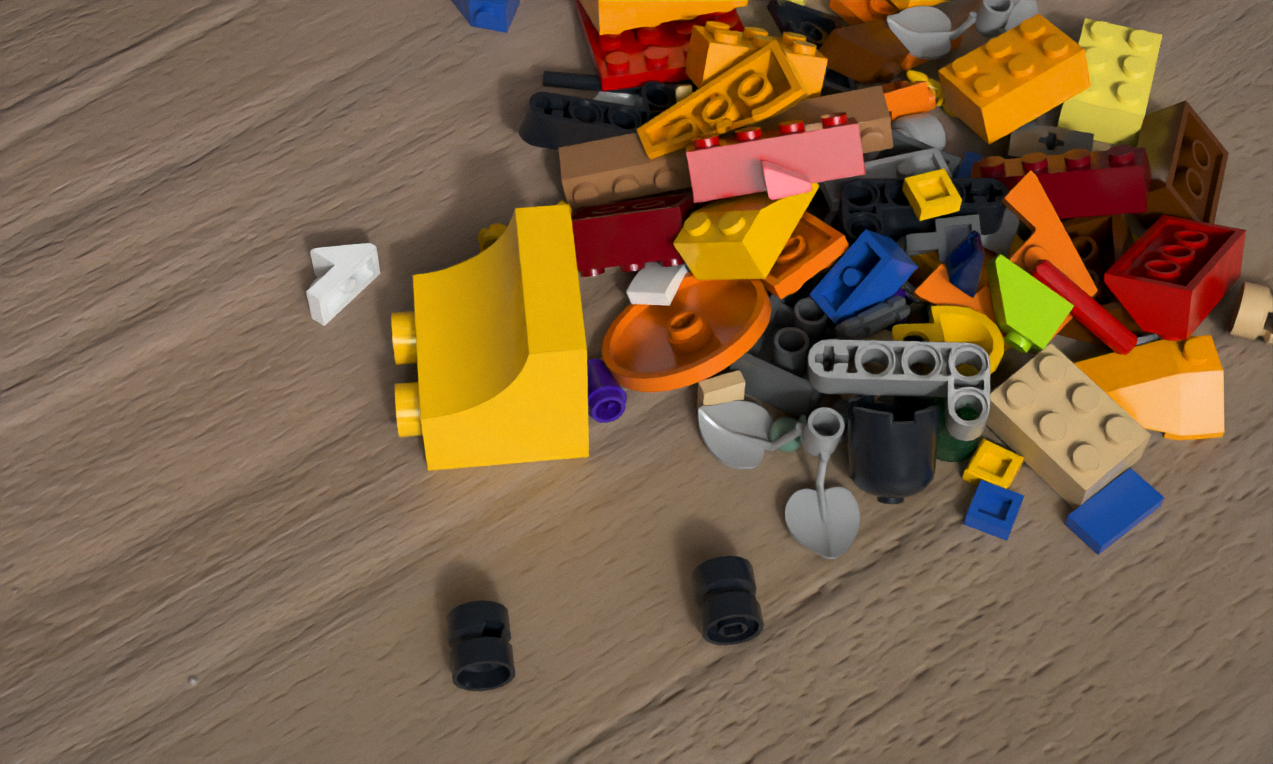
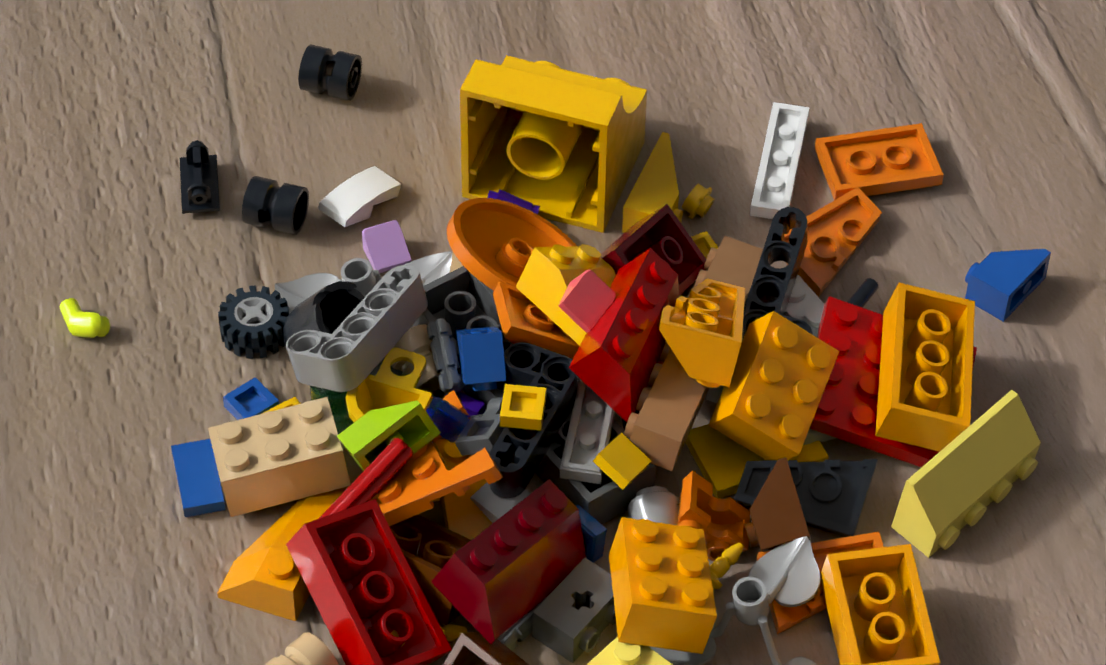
camera: 115 degrees right, 5 degrees down
(341, 276) = (708, 99): white slope -> none
(367, 125) = (879, 161): none -> orange plate
(404, 197) = (779, 160): none -> white plate
(482, 131) = (834, 237): none -> orange wing
(658, 534) = (356, 196): none -> white slope
(714, 482) = (385, 246): none -> lavender slope
(724, 713) = (199, 180): none -> black hinge
(913, 549) = (253, 321): none -> black wheel
(914, 134) = (622, 461): none -> yellow tile
(1004, 725) = (83, 323): none -> neon yellow arm

